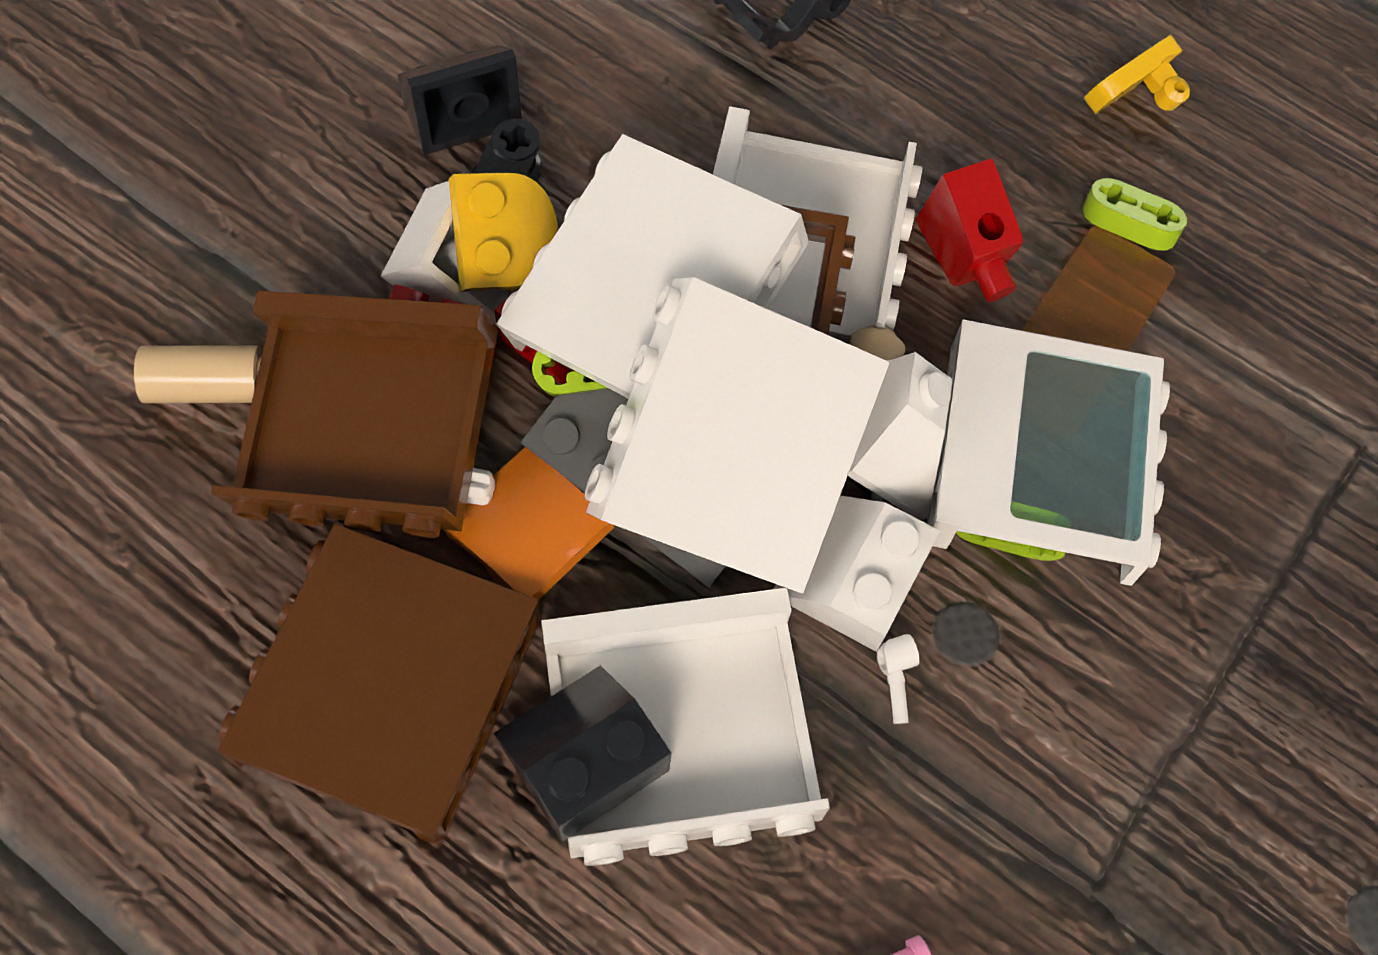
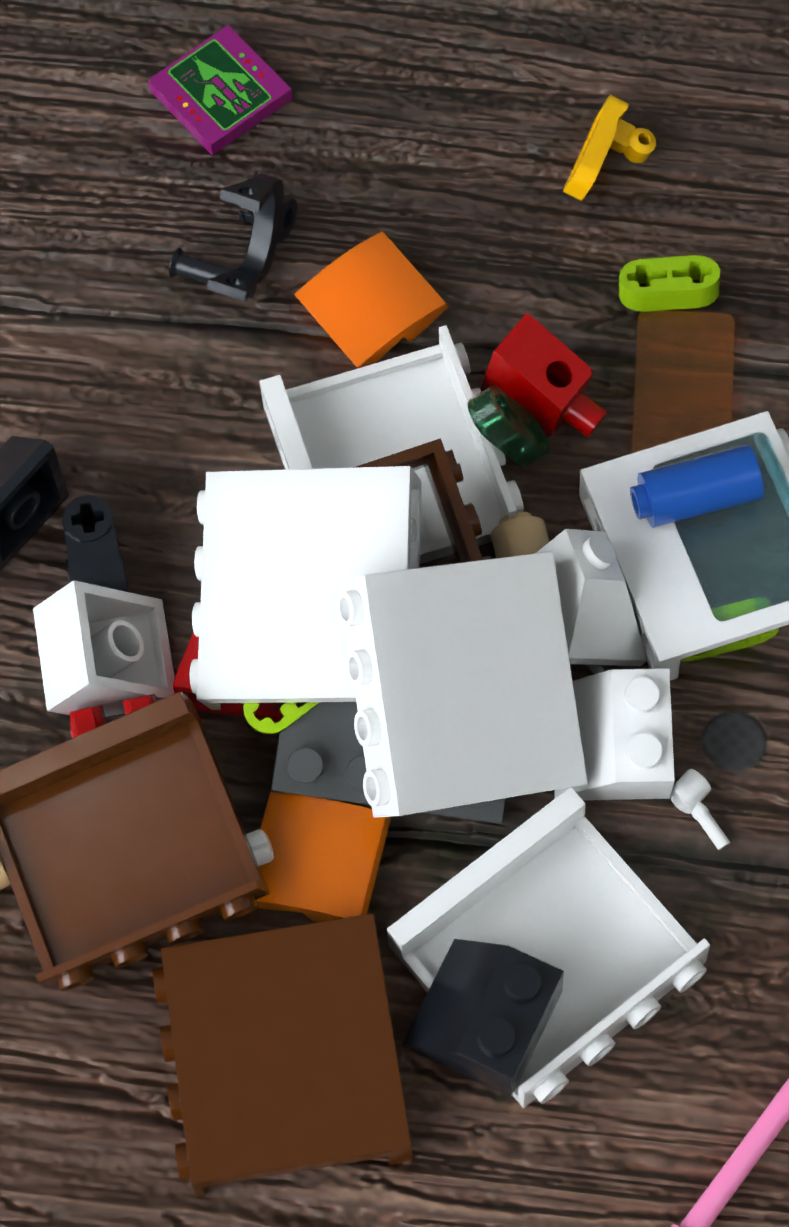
camera: 20 degrees left, 0 degrees up
(498, 228) = (135, 612): yellow slope -> none
(867, 99) = (371, 300): none -> orange slope
(920, 251) = (508, 426): none -> clear green beam
(1061, 385) = (697, 486): none -> blue brick

